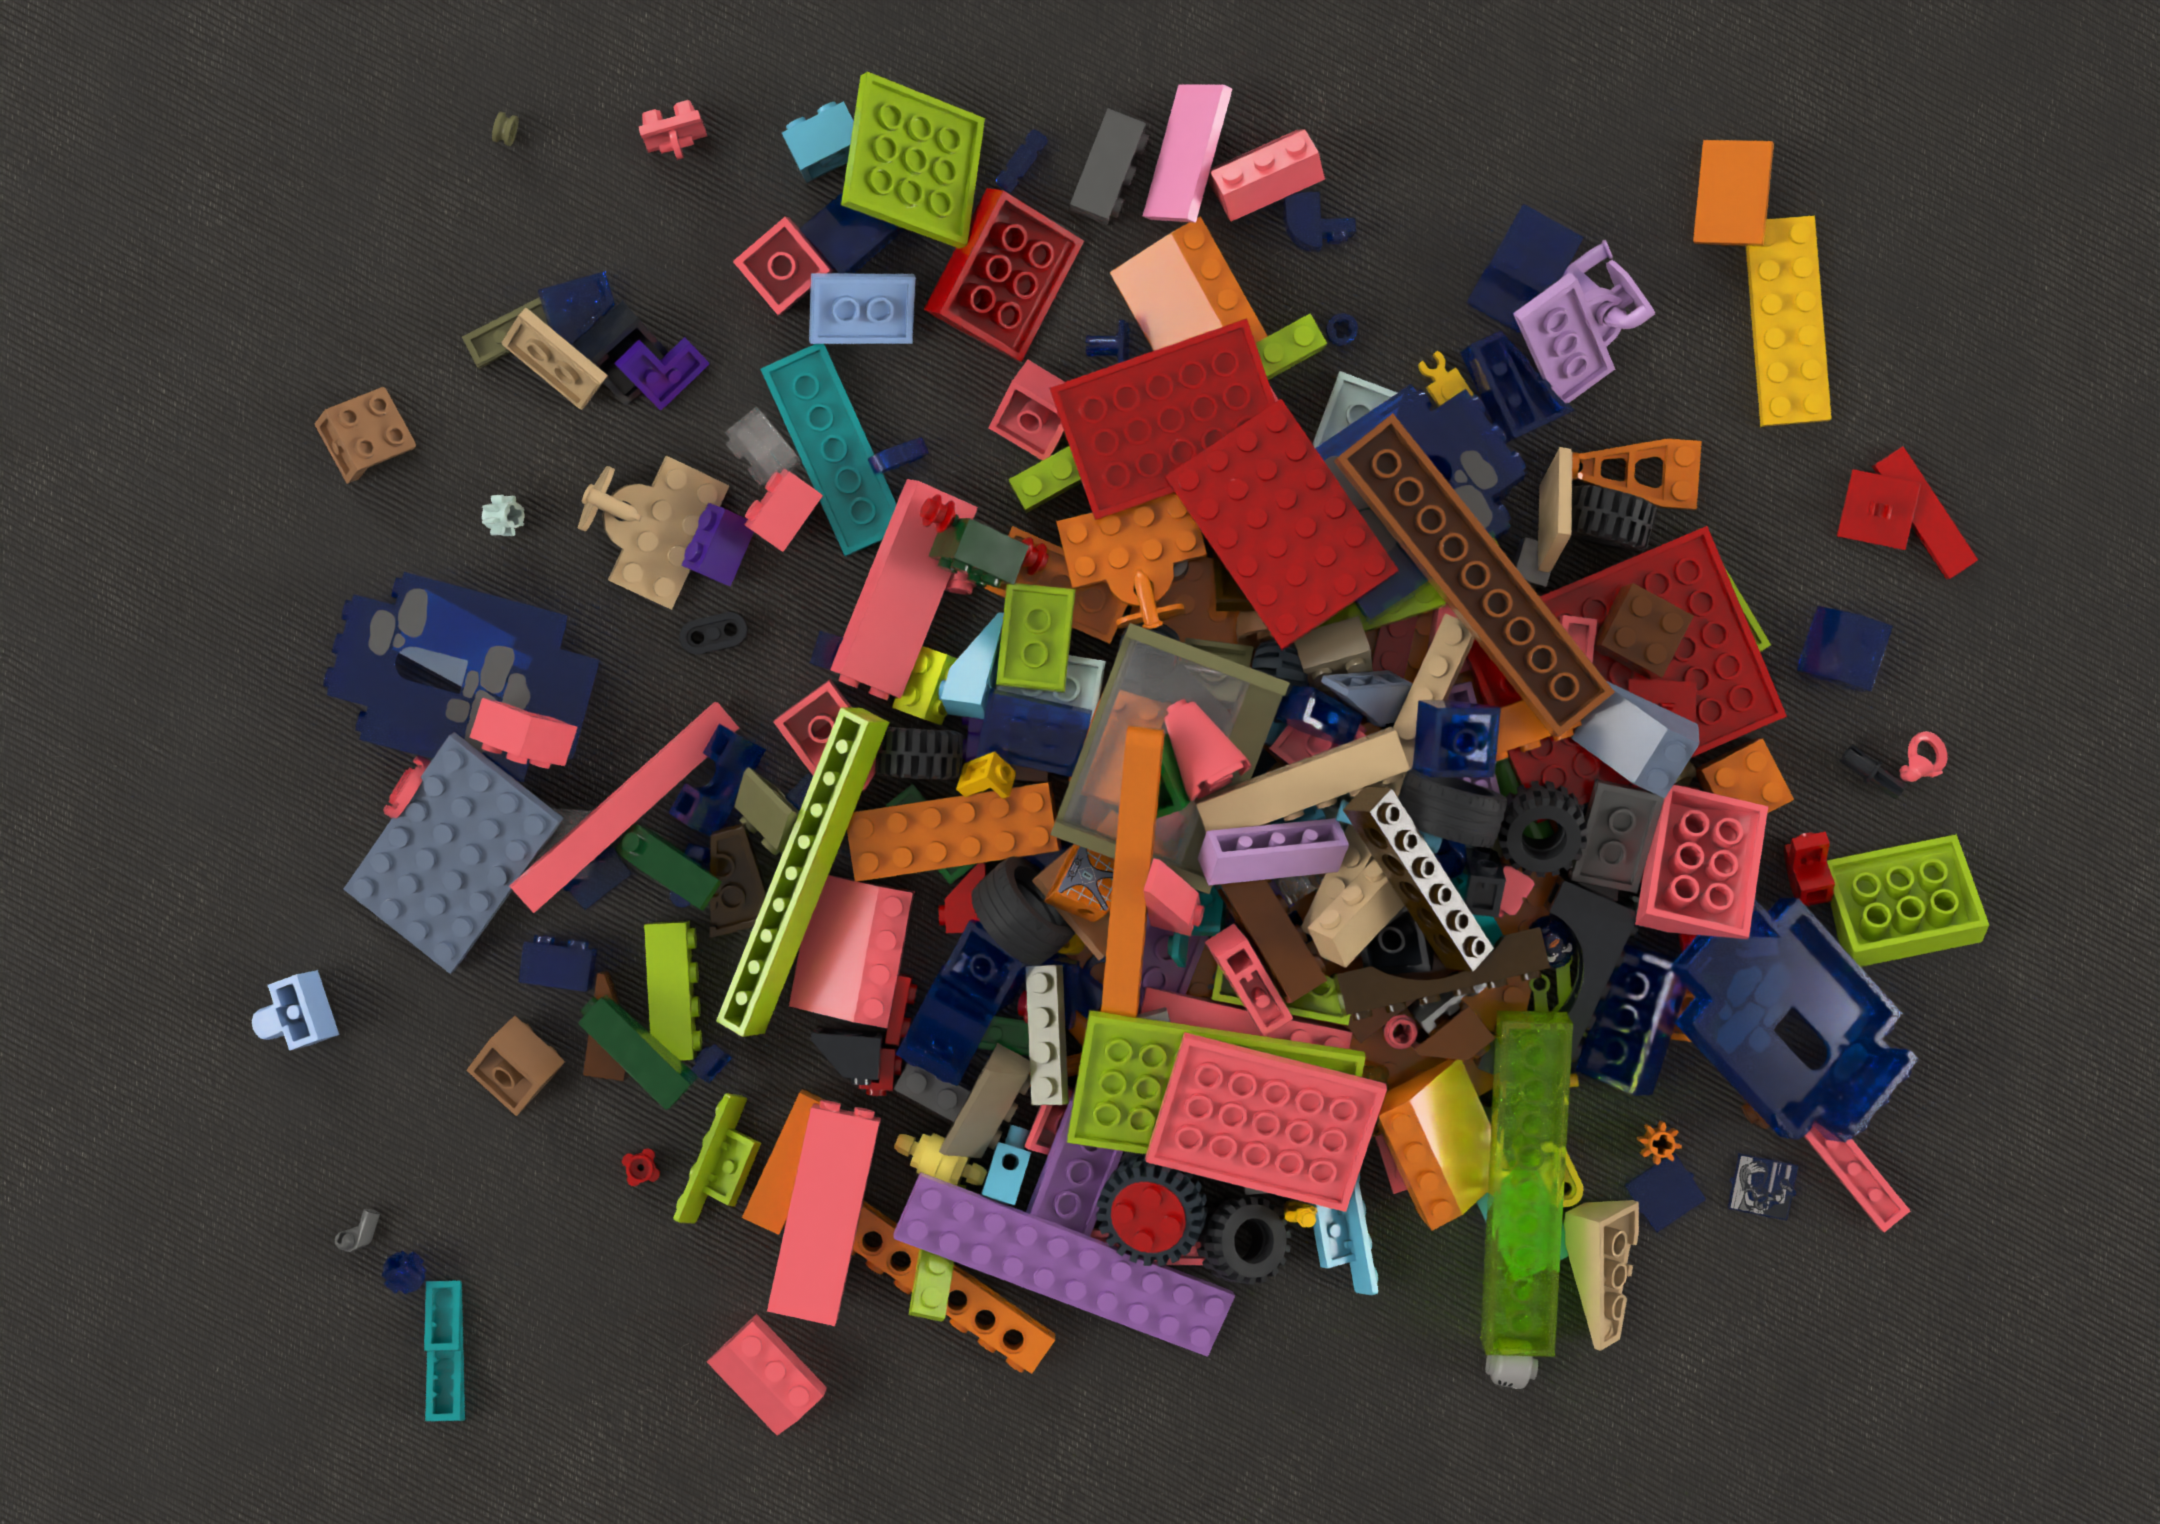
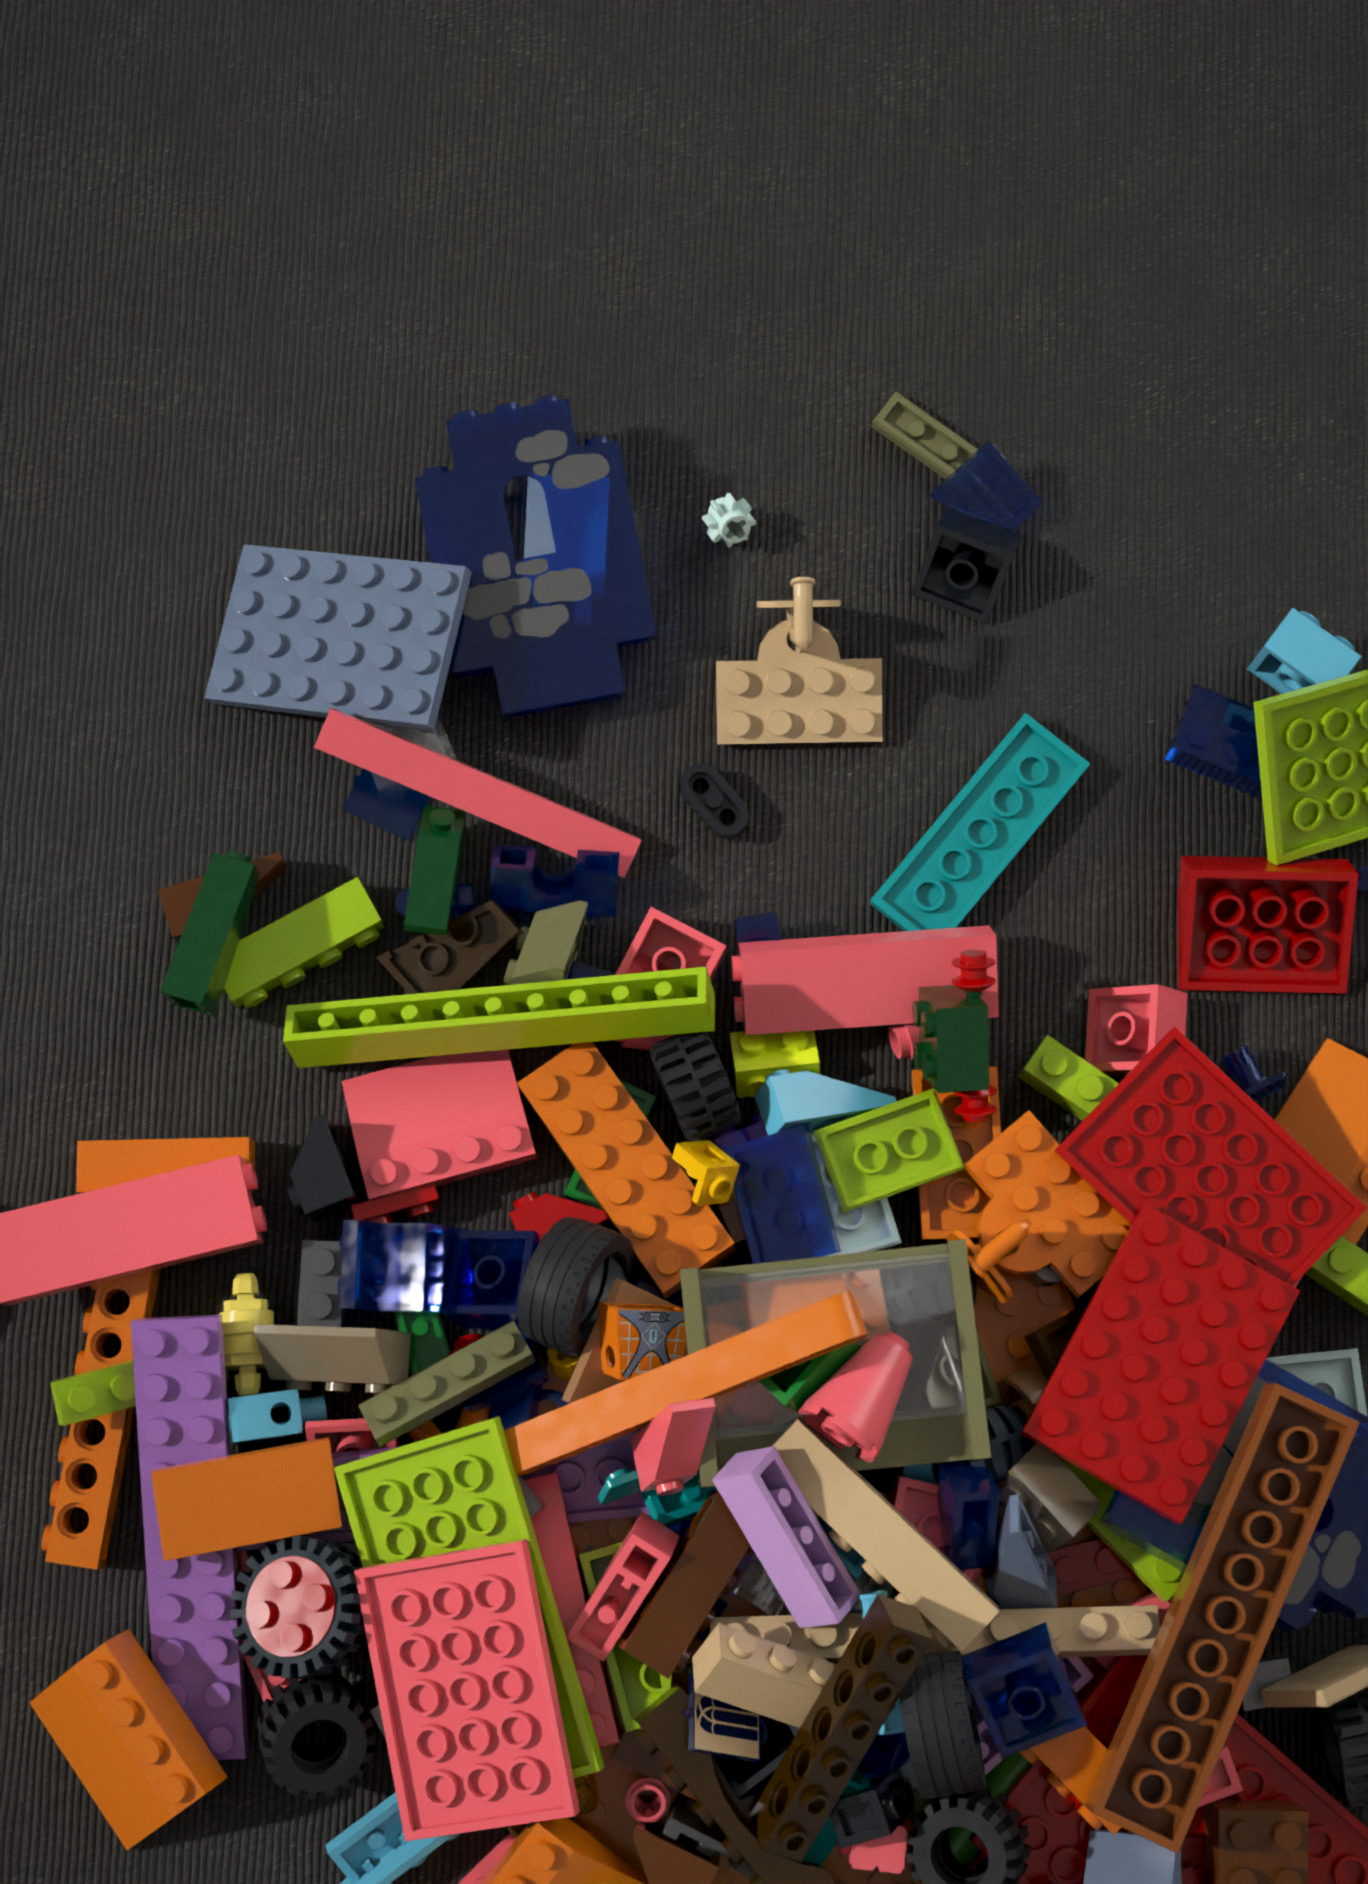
camera: 55 degrees right, 10 degrees down
(298, 1012) = (86, 558): light blue brick -> none
(364, 433) = (743, 339): medium nougat bracket -> none
(406, 787) = (384, 553): coral tile -> none
(505, 128) = (1136, 332): olive bush -> none
(515, 1065) = (135, 814): medium nougat slope -> none
(522, 734) = (504, 644): coral brick -> none
(553, 359) = (924, 491): tan tile -> none
(558, 964) = (268, 806): clear blue brick -> none
(636, 1176) = (71, 1004): red plate -> none
(664, 378) = (961, 617): dark purple plate -> none
(673, 132) = (1227, 503): coral hips -> none
(710, 1062) = (237, 1024): clear blue plate -> none
(718, 544) = (814, 758): dark purple brick -> none
(721, 1163) = (128, 1090): lime bracket -> none
(761, 446) = (941, 757): clear brick -> none
(782, 265) = (1148, 683): coral brick -> none
(782, 509) = (888, 804): coral slope -> none
(861, 308) = (1148, 787): light blue tile -> none
(890, 1066) = (325, 1226): red bracket -> none
(898, 456) = (1008, 904): clear blue beam -> none
(1058, 1213) = (246, 1498): none -> orange tile
(1182, 1370) = (127, 1738): none -> orange slope
(1300, 1212) = (378, 1787): yellow piece -> none
(1379, 959) = (722, 1728): none -> piece

